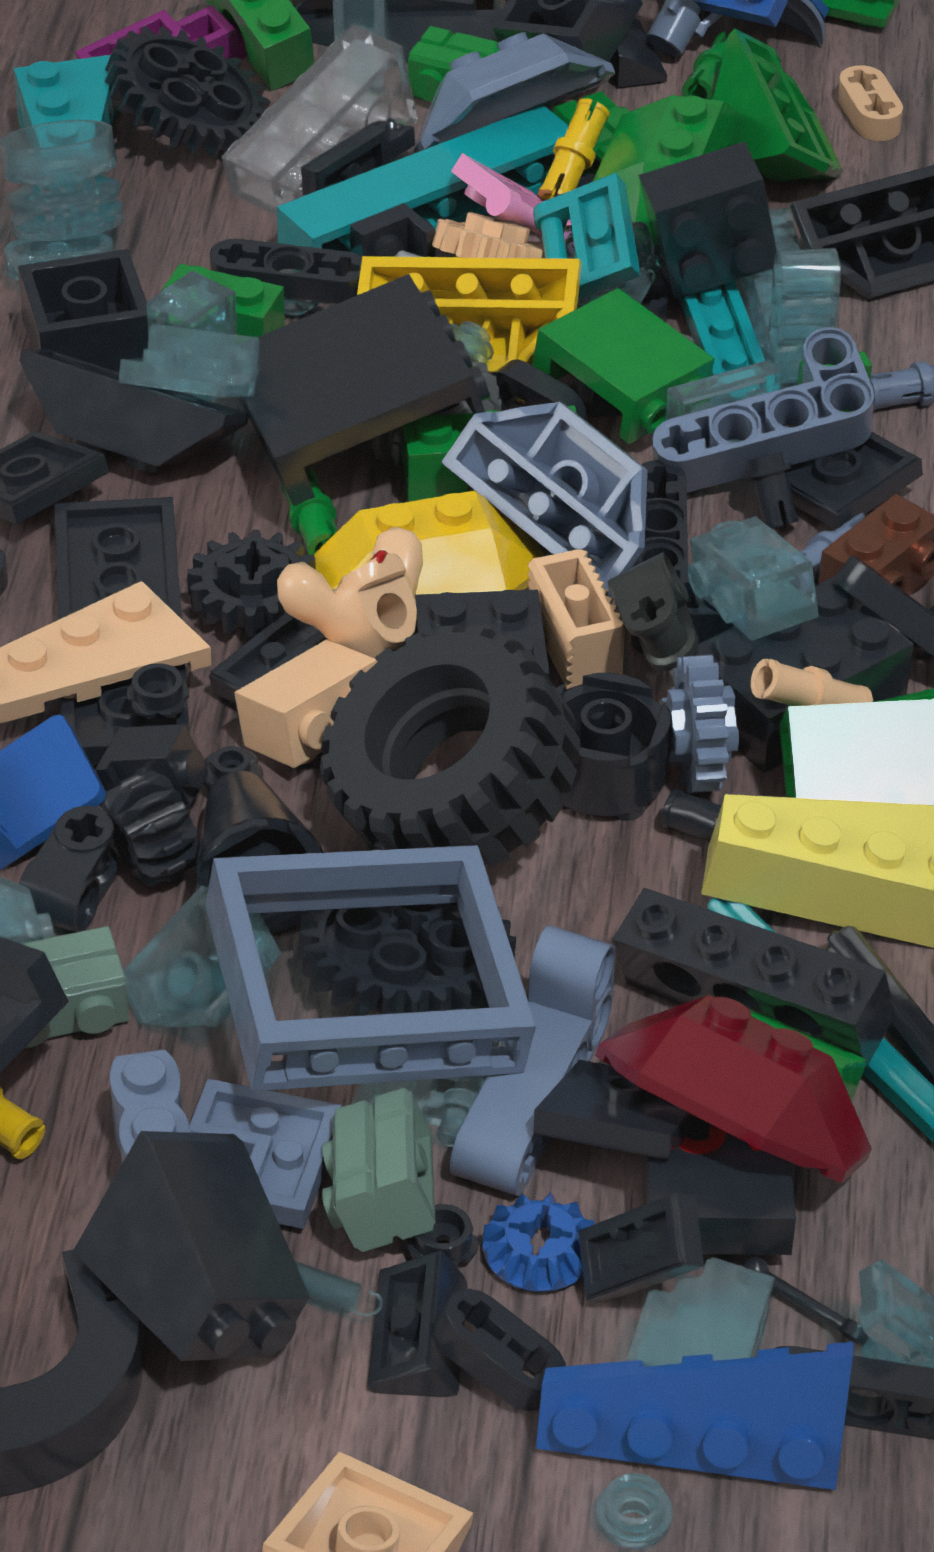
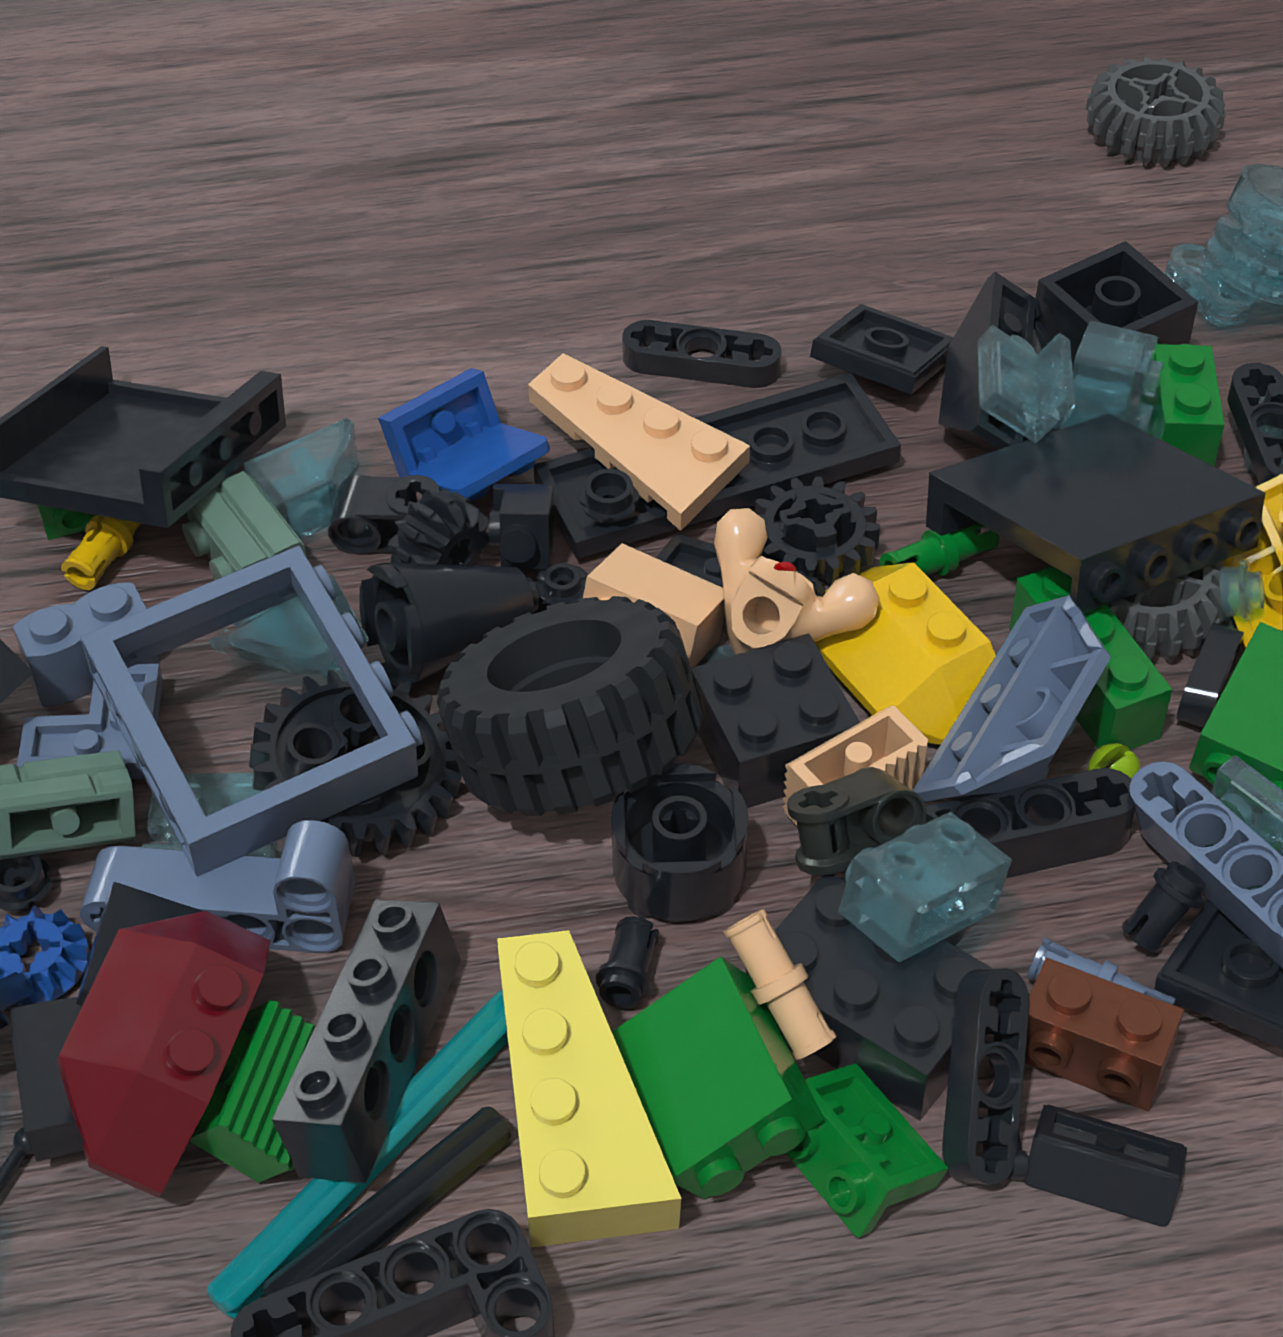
camera: 75 degrees right, 5 degrees up
(701, 723) = (715, 898): sand blue gear -> none

